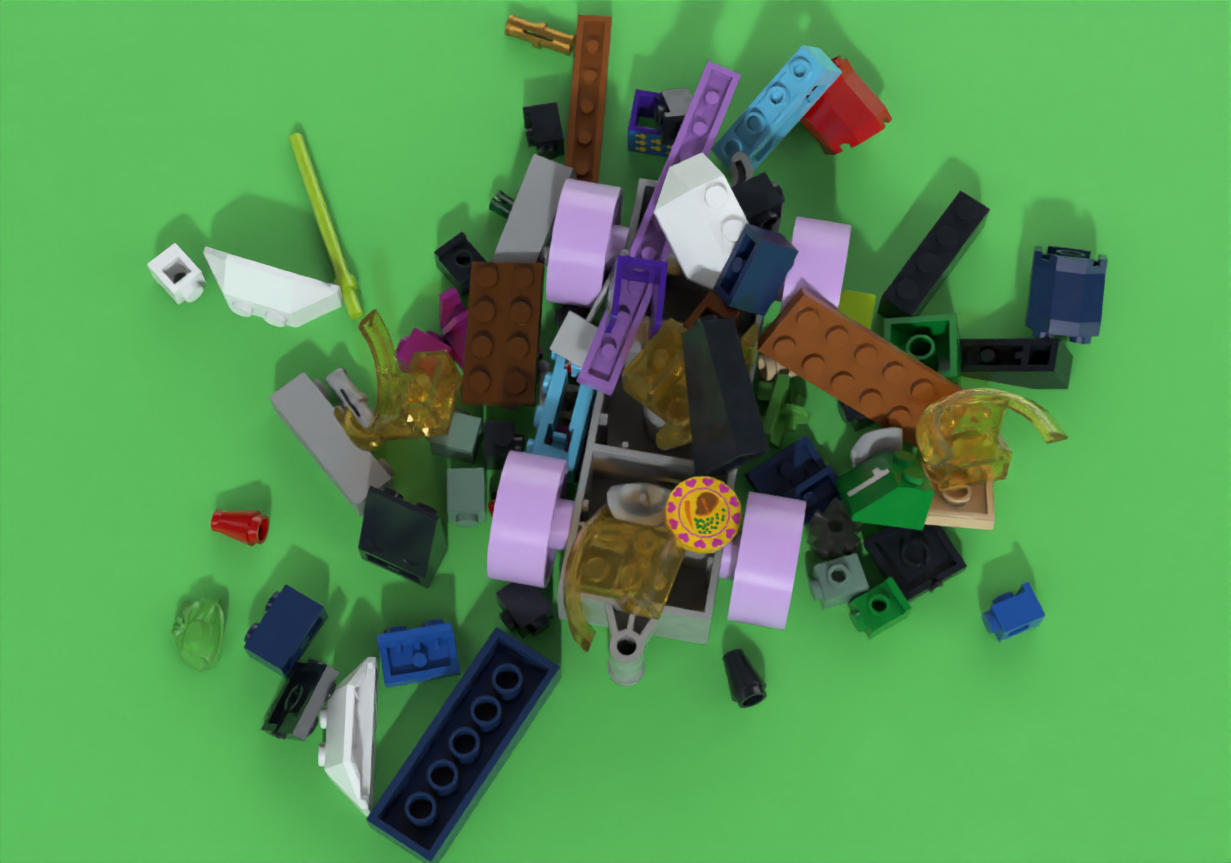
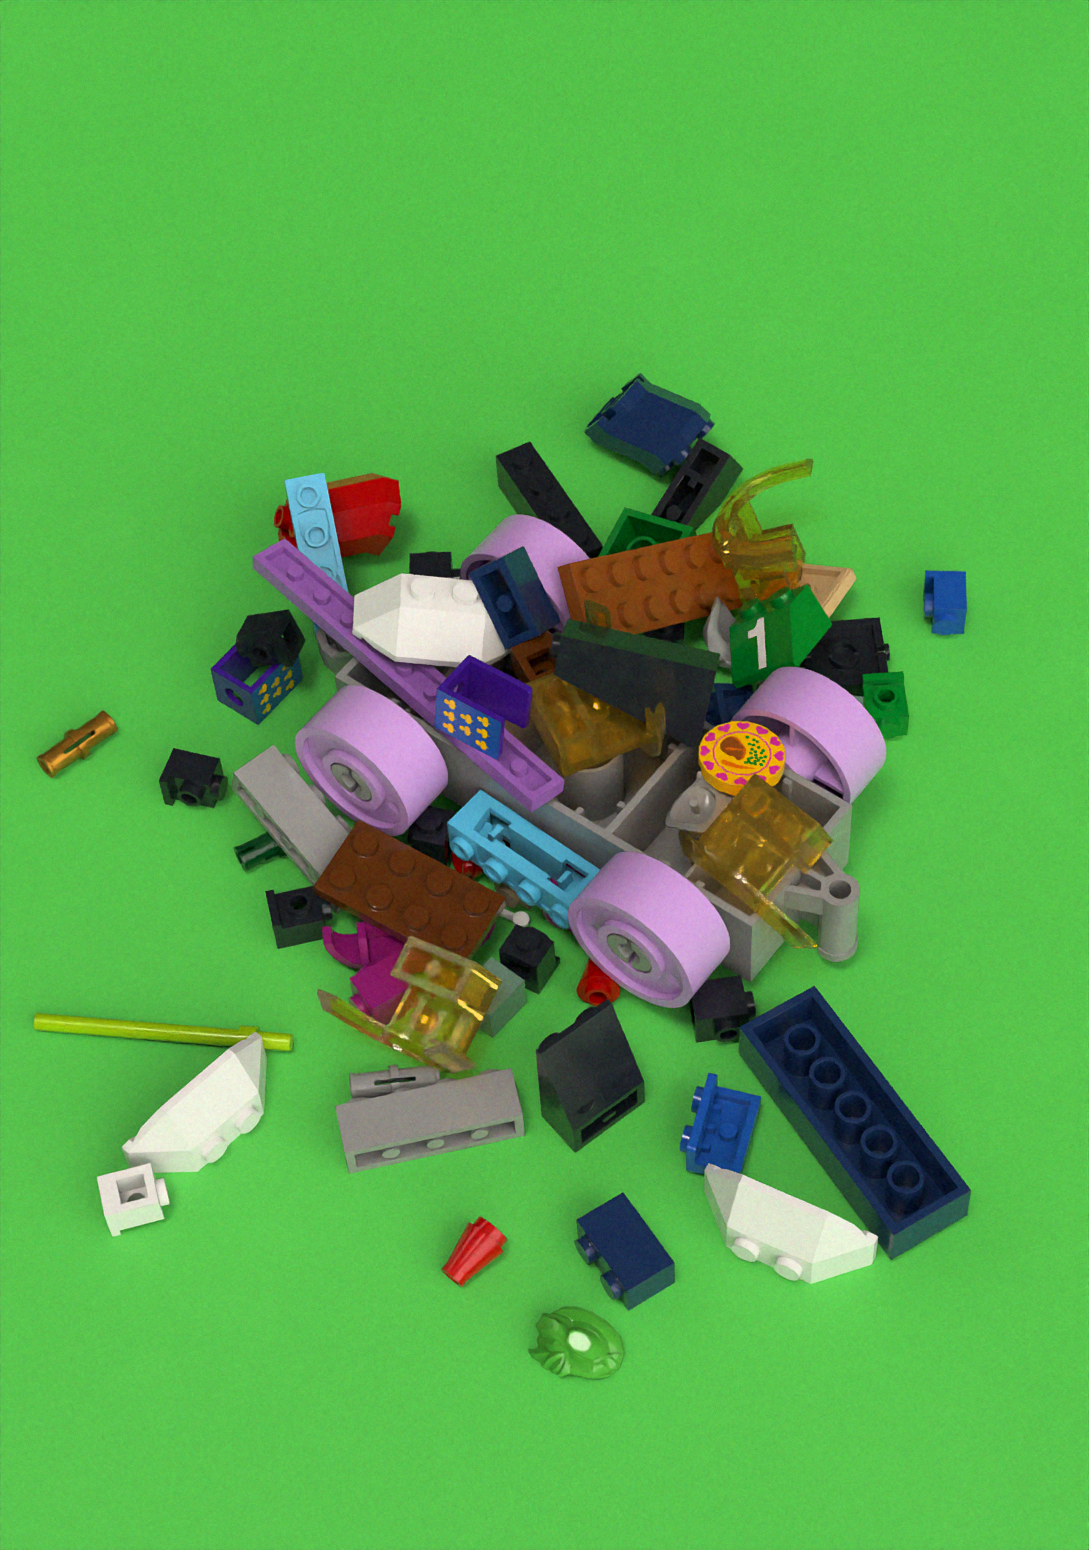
camera: 60 degrees left, 15 degrees down
(301, 700) = (720, 1258): plate -> none
(466, 496) = (562, 1003): sand green brick -> none
(578, 333) = (473, 806): light grey piece -> none
(588, 96) = (170, 722): dark orange plate -> none
(744, 681) = (899, 849): black cone -> none

